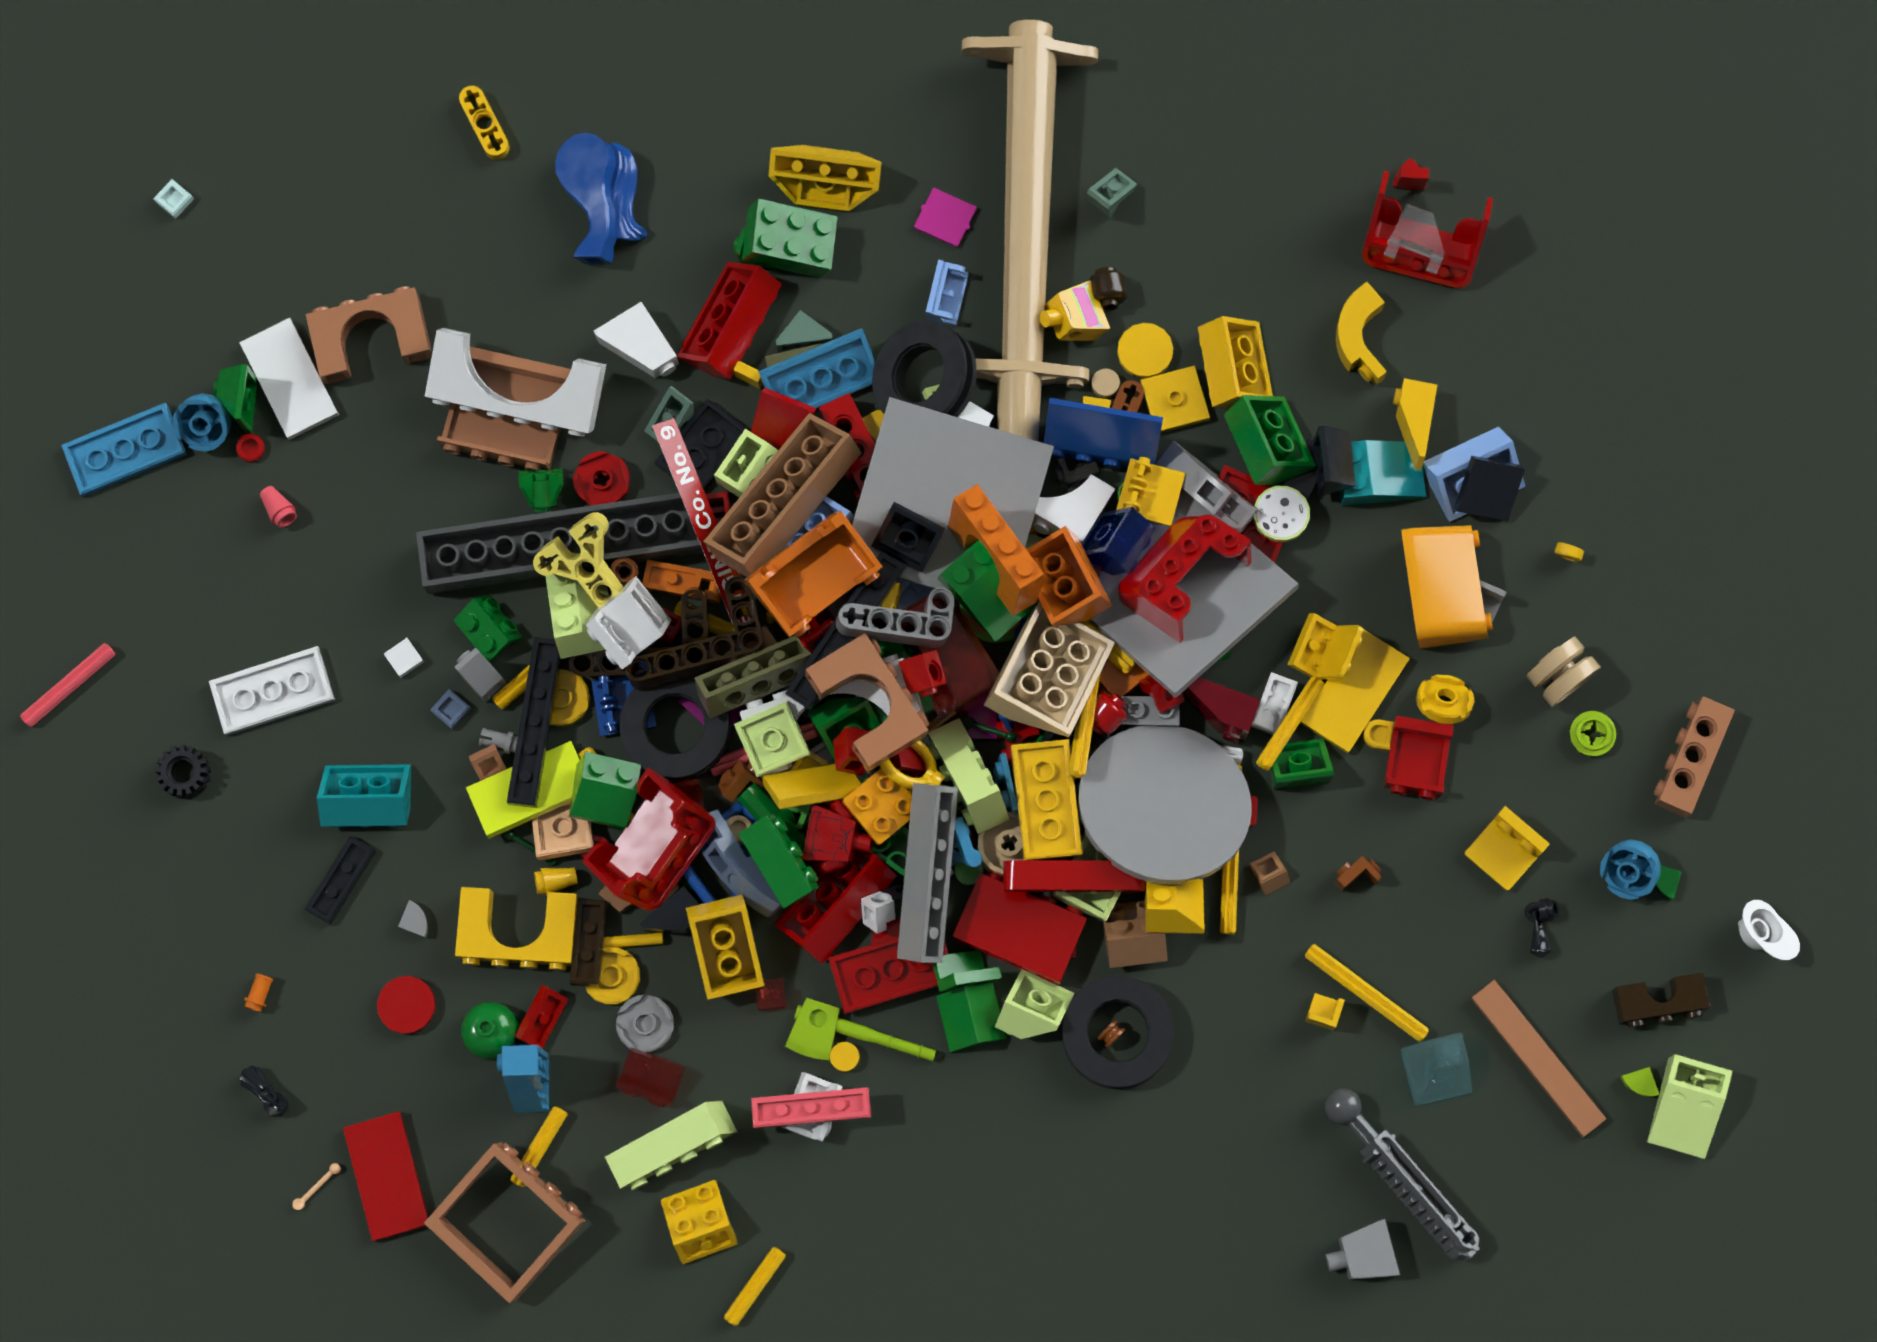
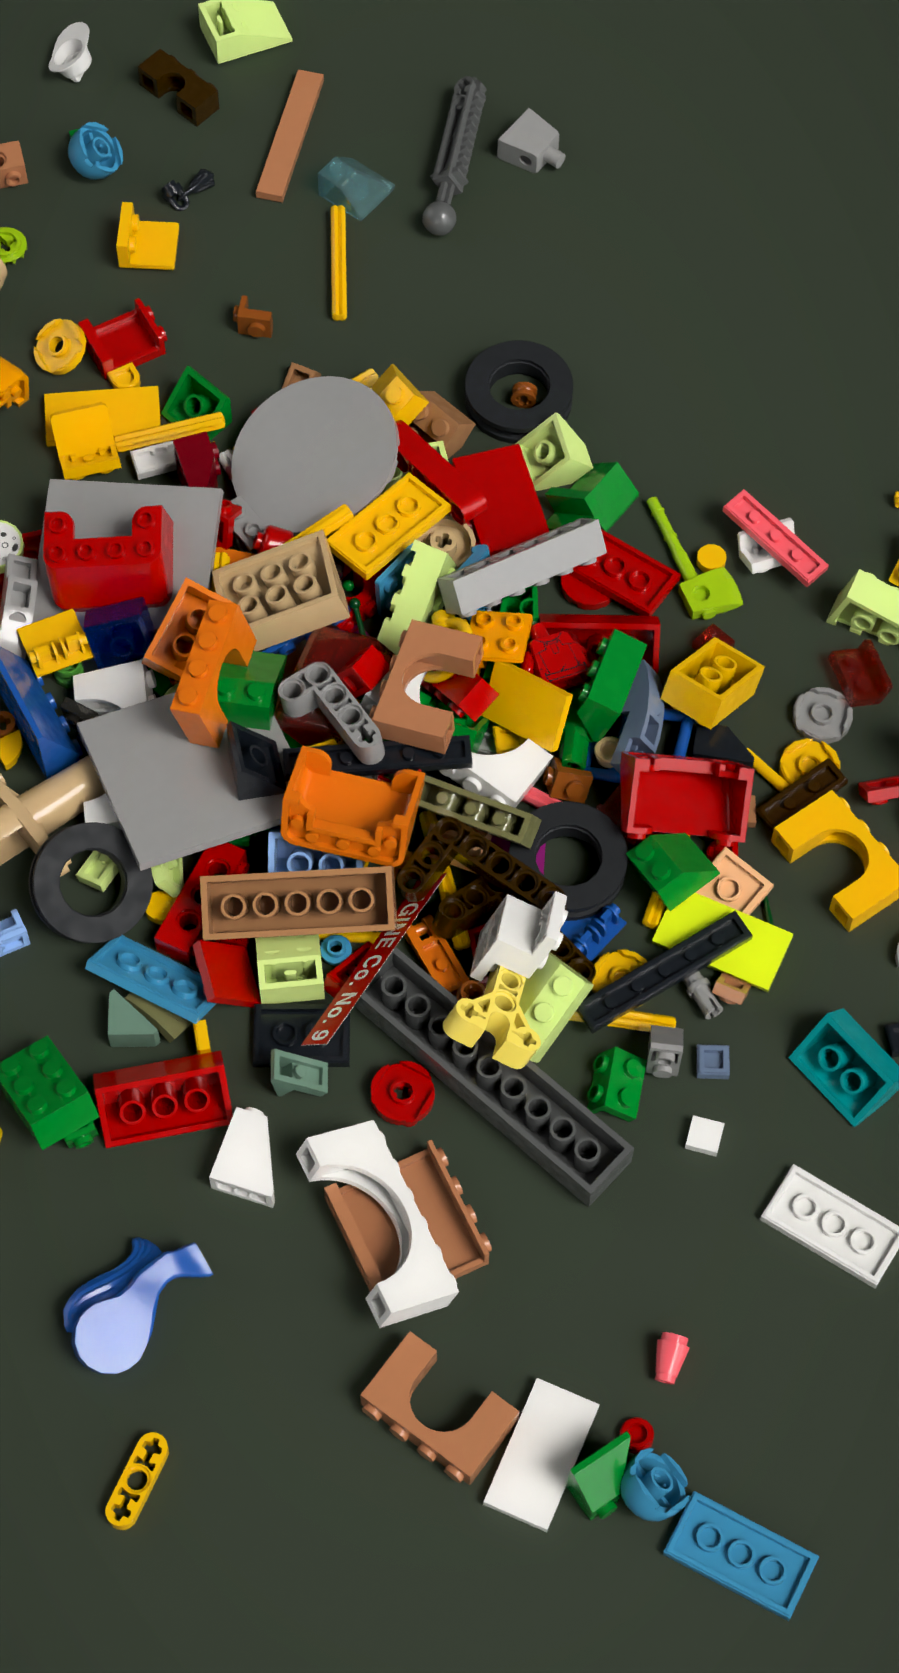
camera: 135 degrees left, 15 degrees down
(541, 487) = (454, 1132): green brick -> none
(554, 879) = (777, 864): yellow cone -> none
(772, 739) = (515, 760): yellowish green tile -> none
(882, 908) = (570, 600): white leg -> none
(1324, 1011) = (378, 273): yellow panel -> none
(1641, 1082) = (251, 68): lime tile -> none

